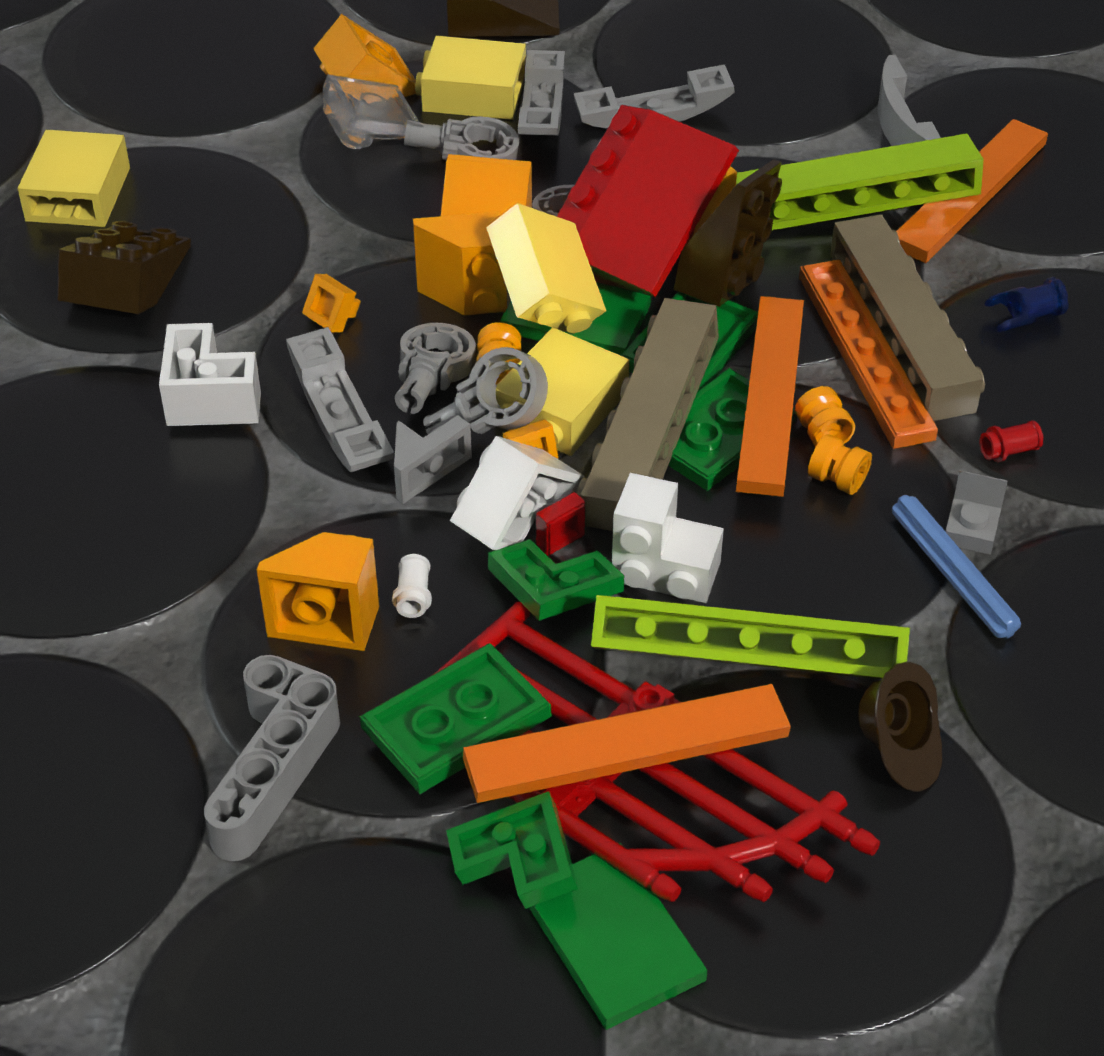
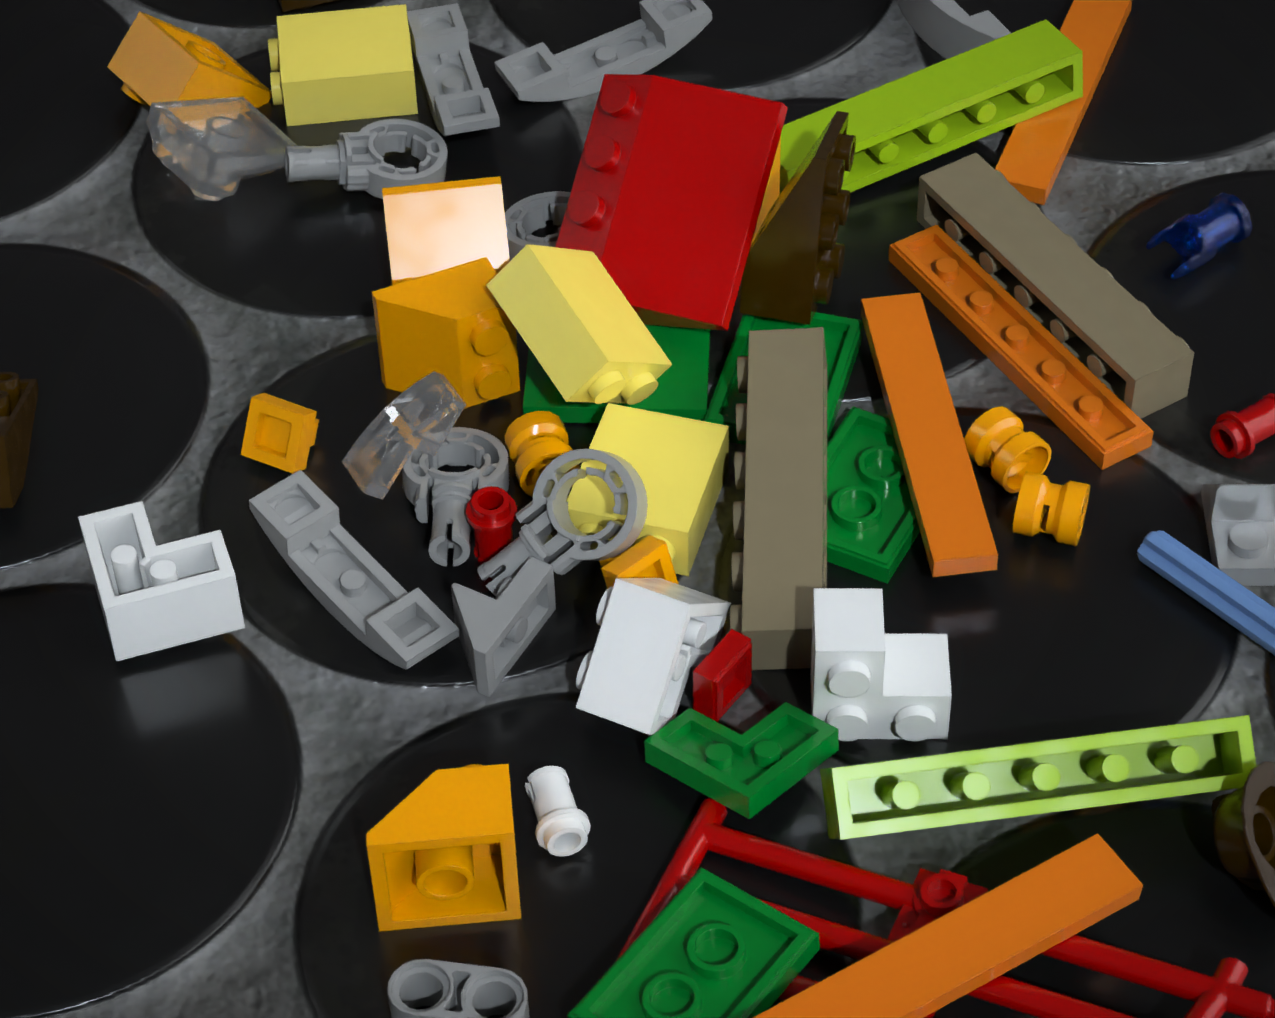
camera: 15 degrees left, 0 degrees up
(415, 312) = (413, 420): none -> clear slope
(442, 384) = (491, 516): none -> red pin

